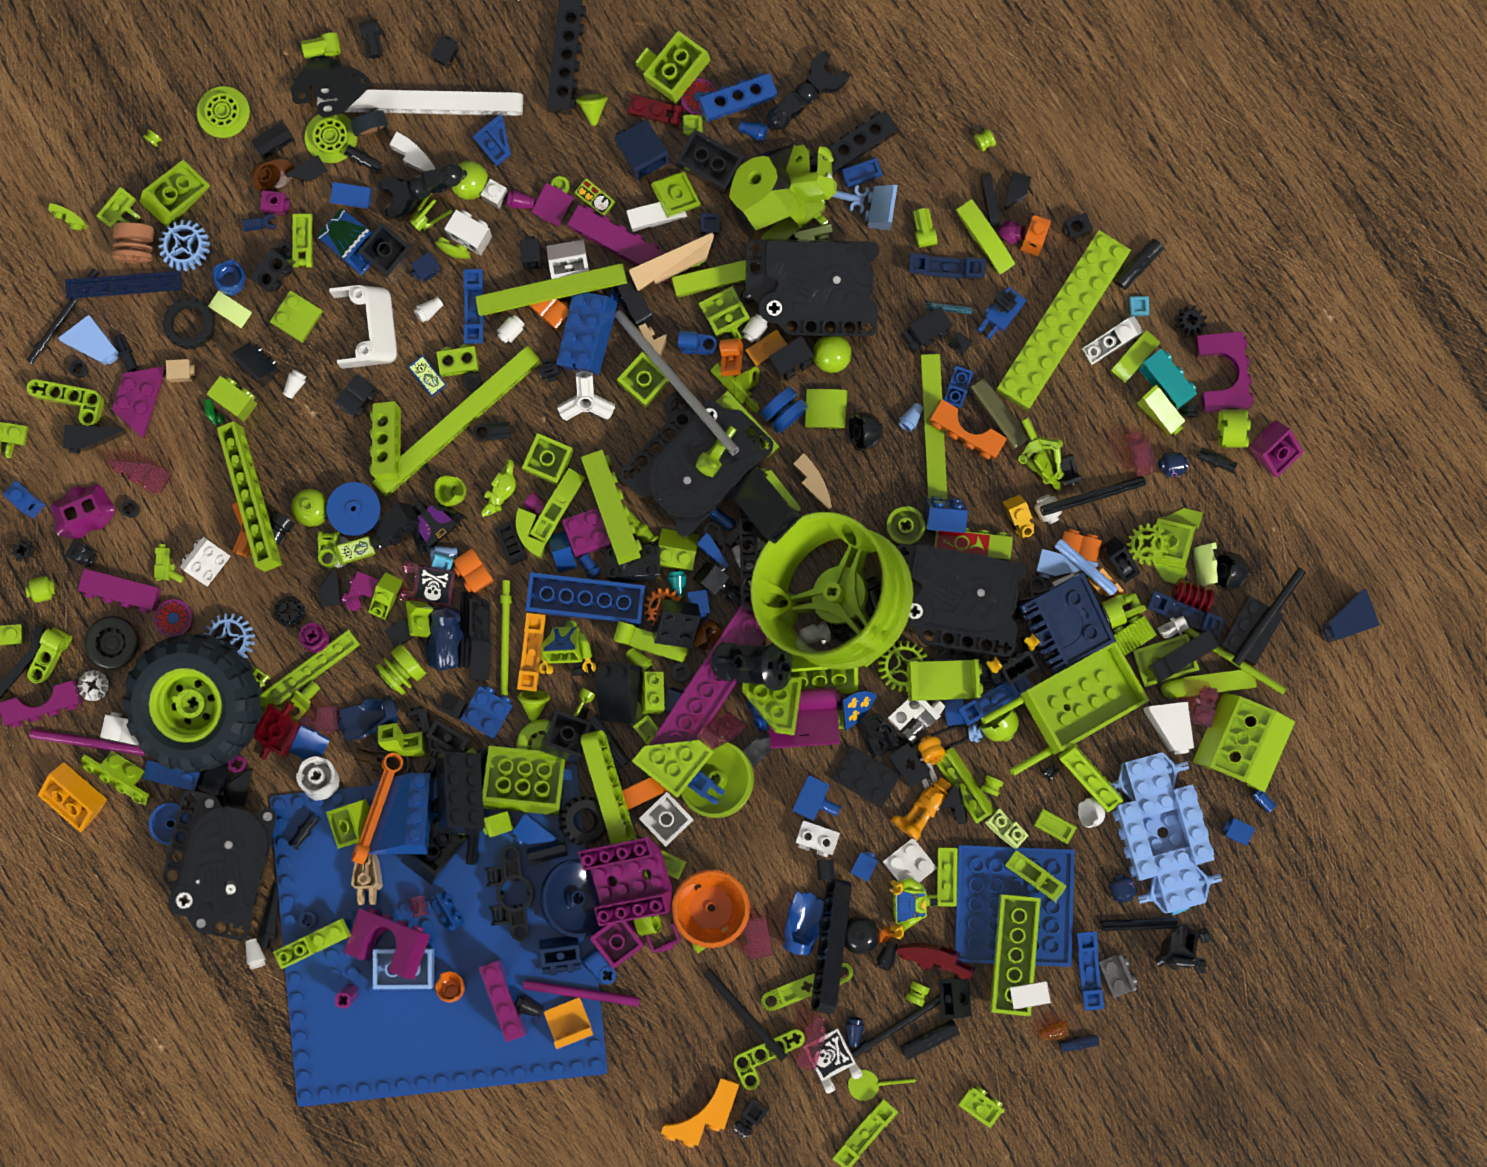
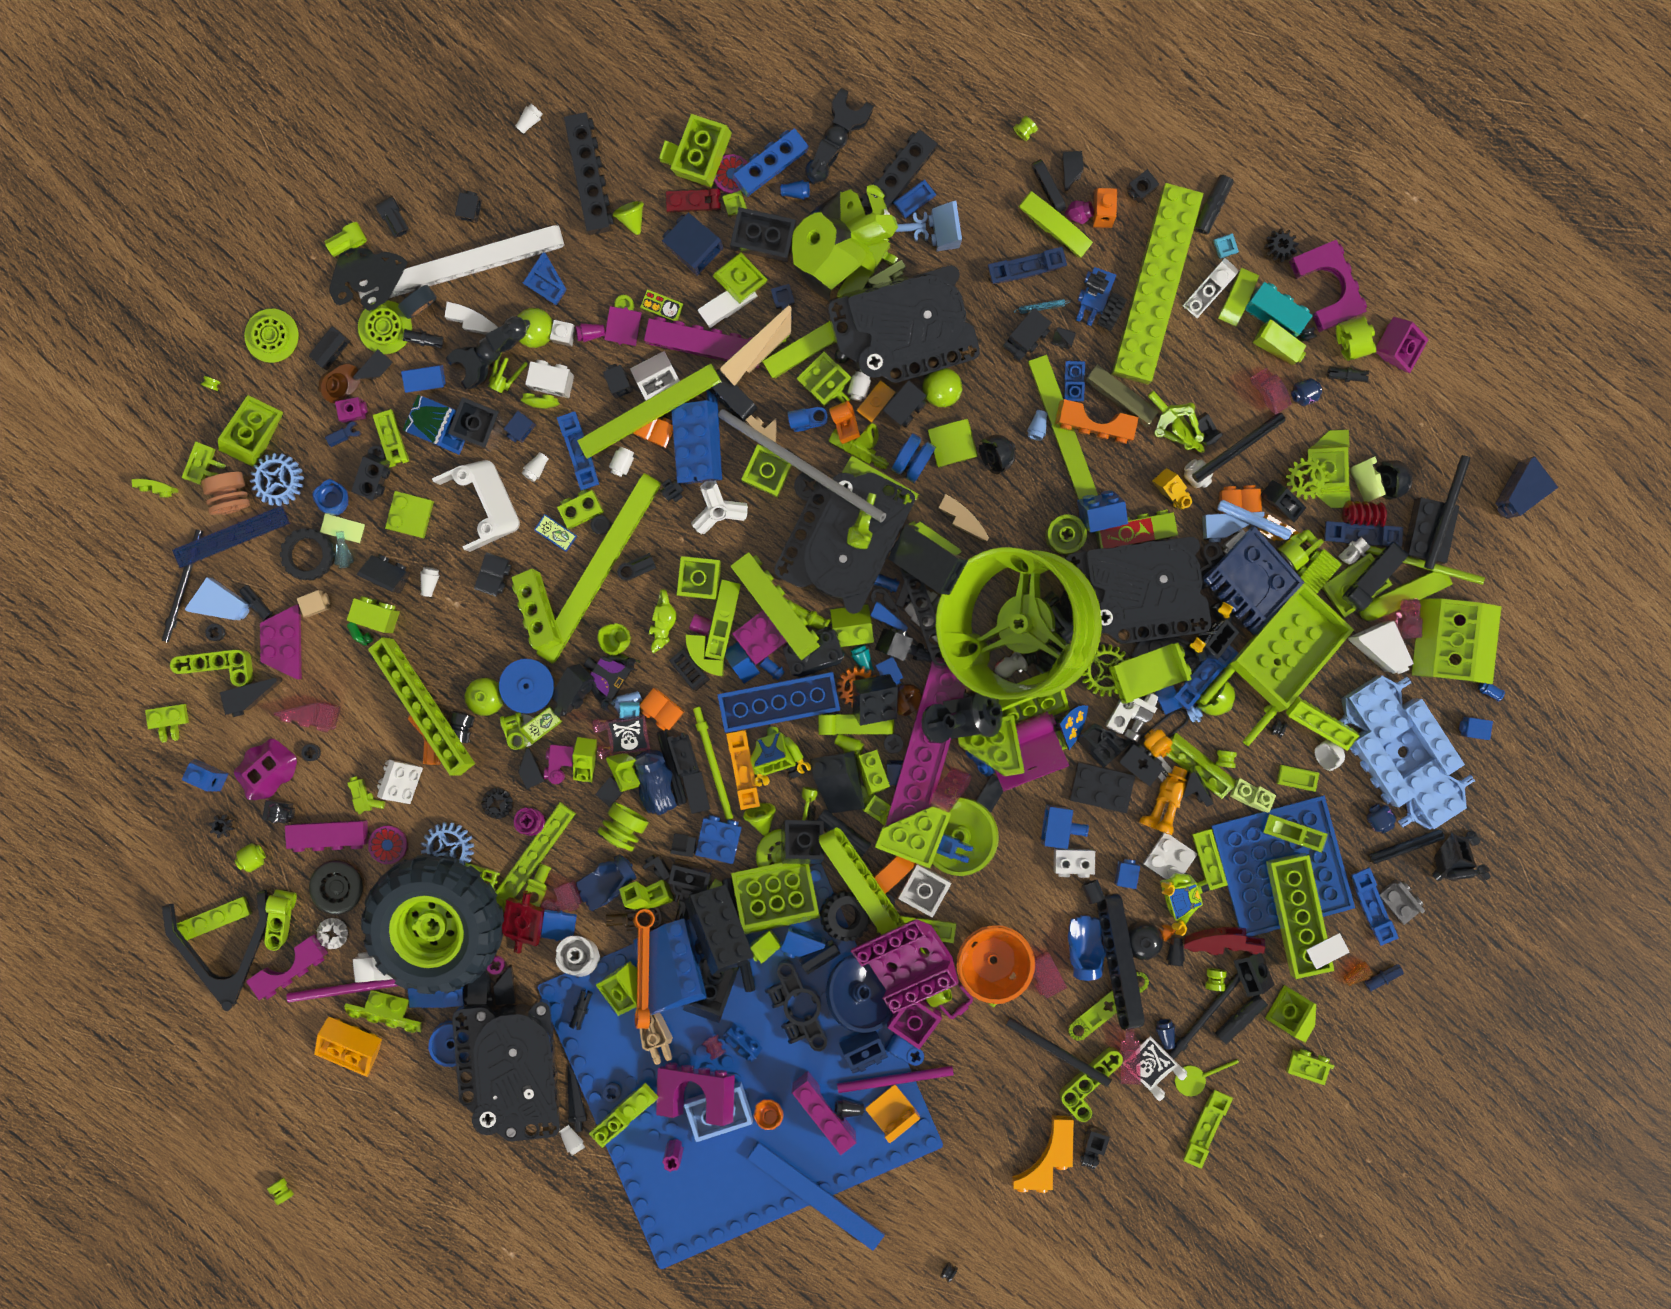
camera: 15 degrees left, 5 degrees up
(222, 334) = (343, 556): none -> clear light blue cone
(470, 1081) = (816, 1196): none -> blue tile
(925, 232) = (995, 238): lime piece -> none
(981, 1050) = (1293, 1014): none -> lime slope
(1012, 332) = (1111, 311): none -> black tyre

